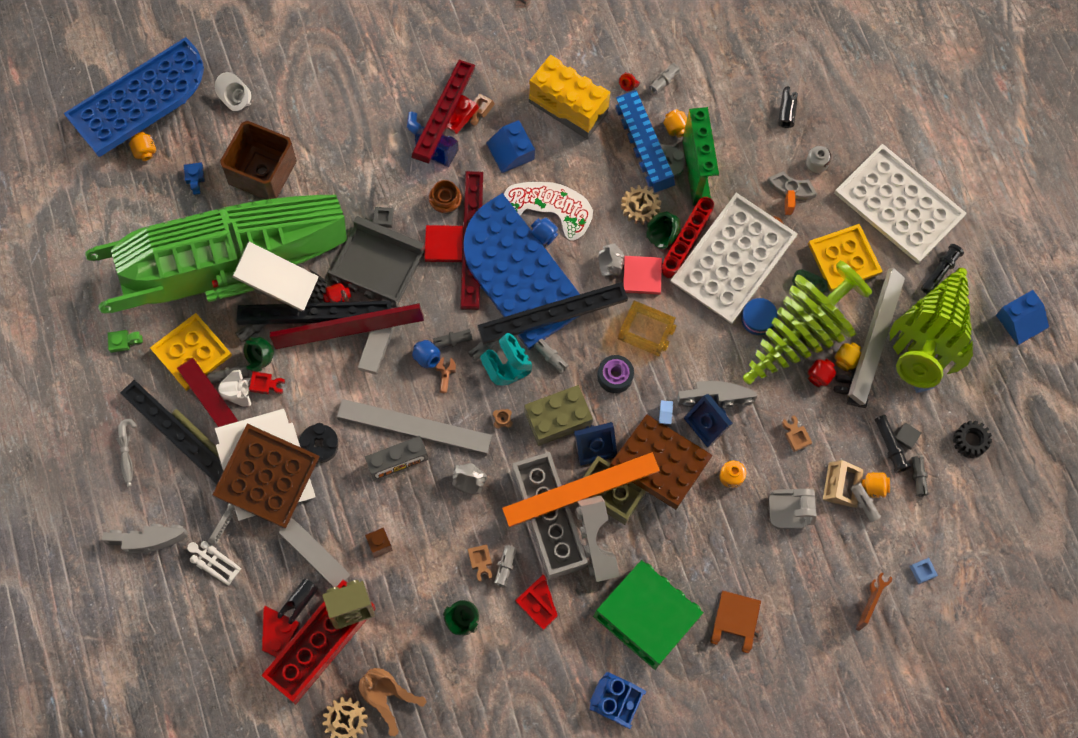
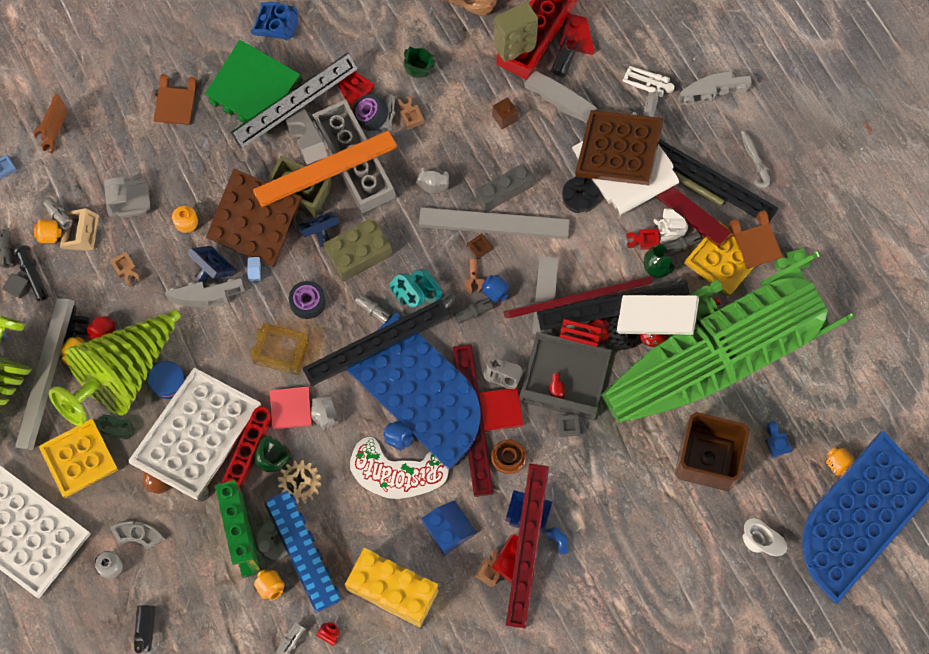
camera: 175 degrees right, 0 degrees up
(154, 355) = (758, 243): none -> dark orange flag
(353, 290) = (579, 332): none -> red tile
(386, 251) = (557, 388): none -> red cylinder
(433, 270) = (504, 374): none -> light grey piece
(433, 405) = (479, 246): none -> reddish brown tile
(498, 414) = (406, 239): medium nougat plate -> none
(515, 568) = (370, 112): none -> black wheel
(604, 582) = (294, 100): none -> plate
(789, 202) = (138, 510): orange tile -> none

